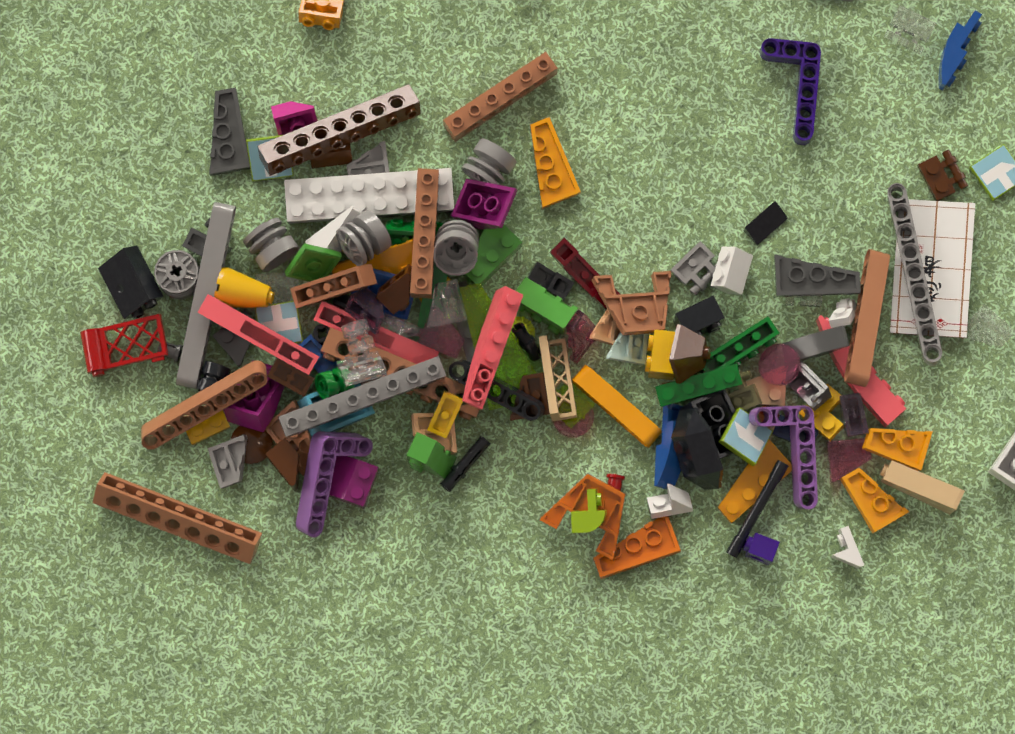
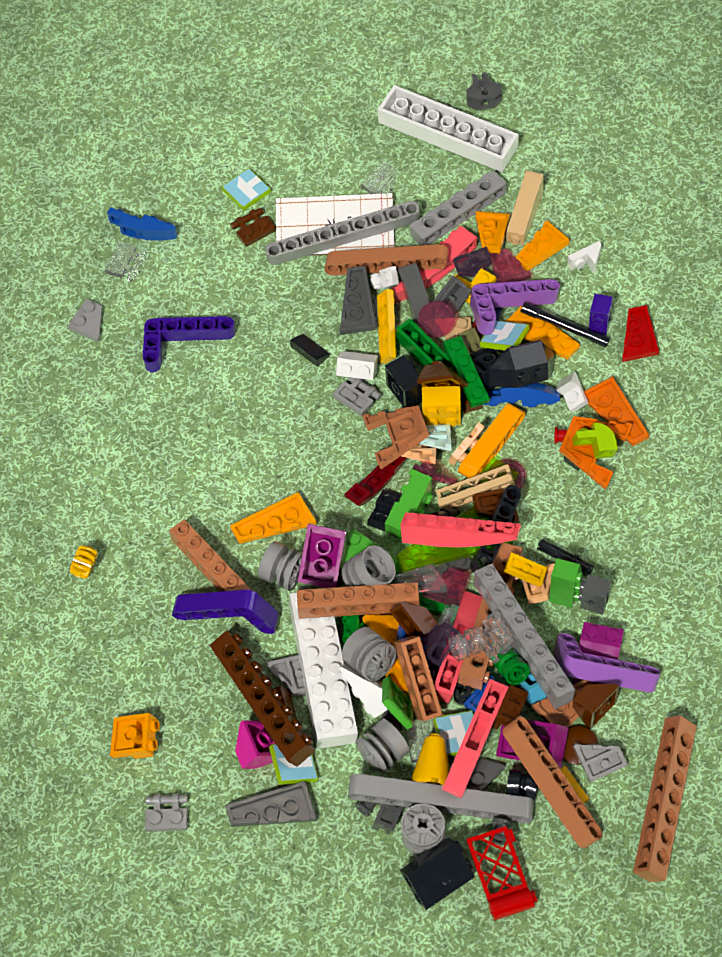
camera: 90 degrees left, 20 degrees down
(232, 31) = (166, 819): none -> light grey plate
(410, 484) = (594, 594): none -> dark grey brick
(445, 104) = (227, 604): none -> dark purple beam
(617, 381) = (468, 442): none -> light nougat wing
(735, 592) = (639, 336): none -> red wing
(778, 308) = (386, 326): none -> yellow plate
(947, 441) = (447, 216): none -> light grey brick

